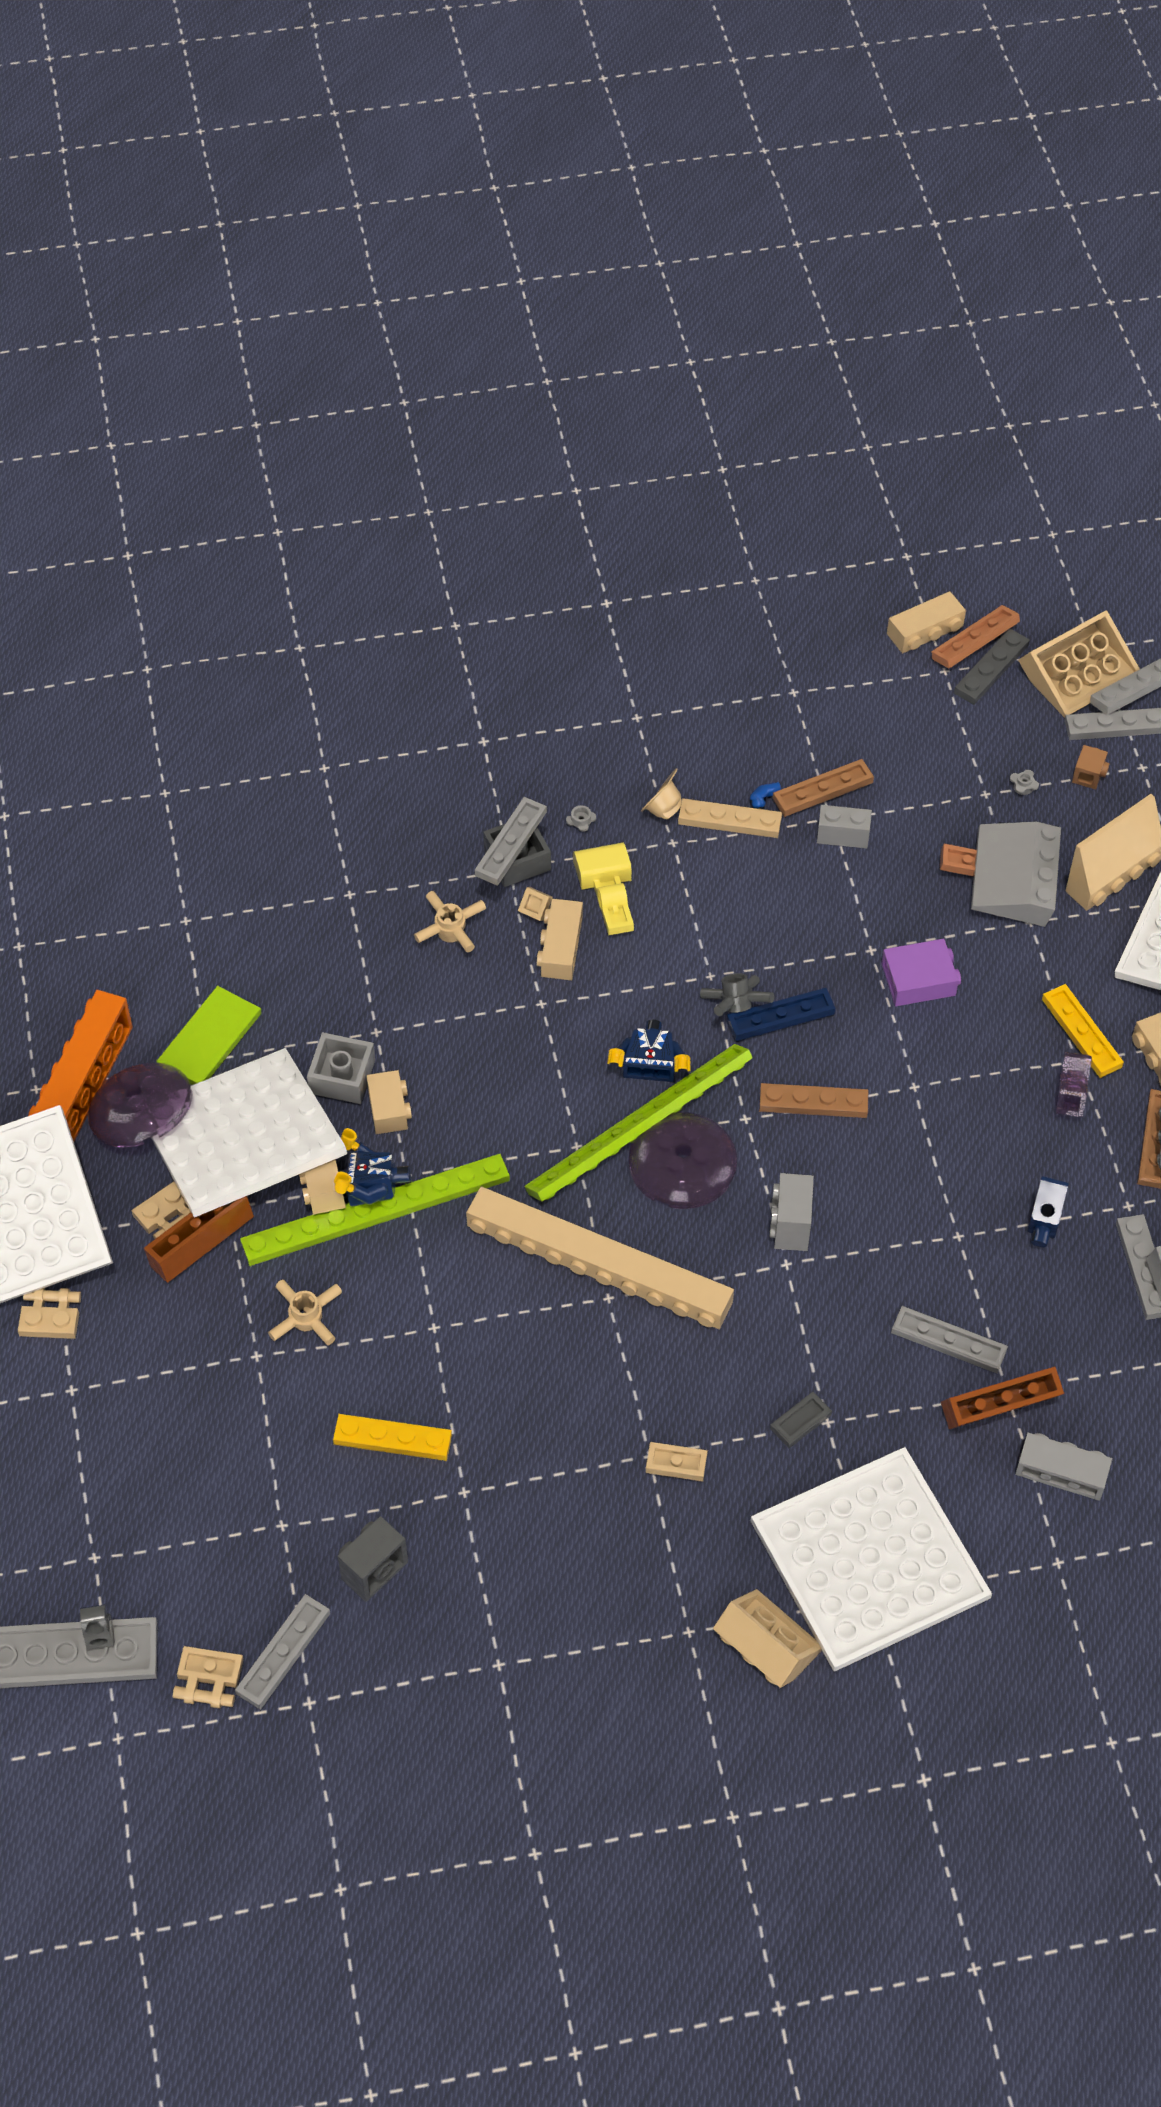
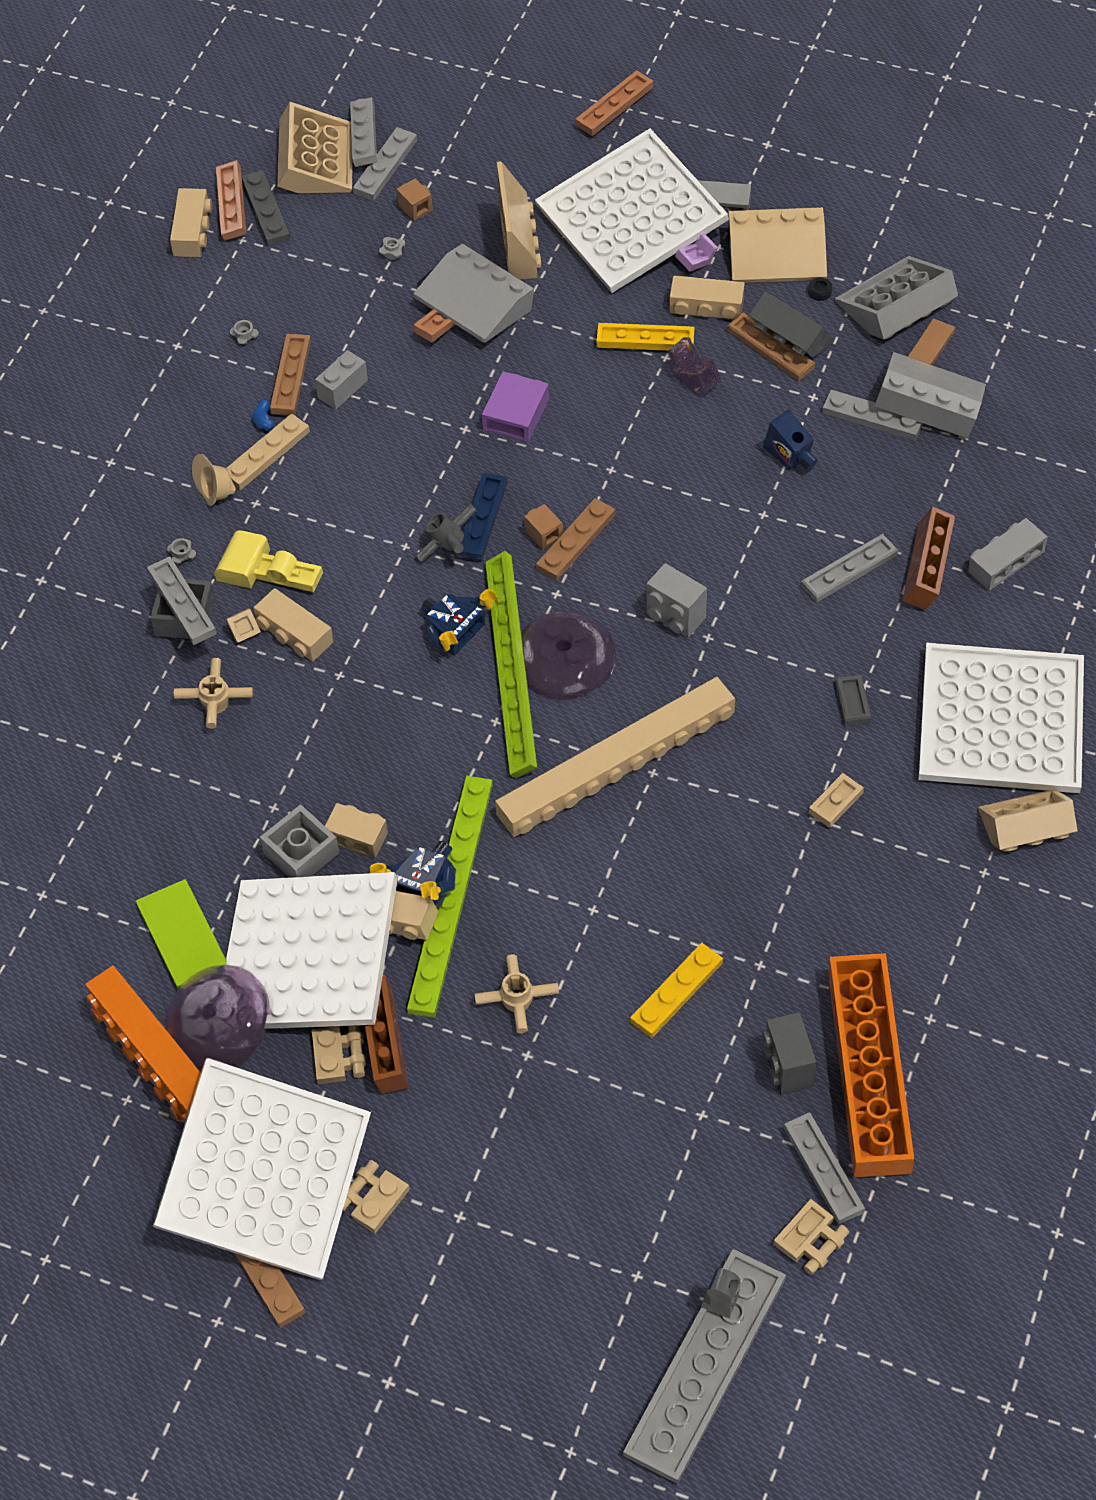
camera: 55 degrees left, 0 degrees up
(406, 1633) = (870, 1066): none -> orange brick
(803, 1065) = (543, 526): none -> medium nougat brick
(843, 728) = (243, 331): none -> light grey plate

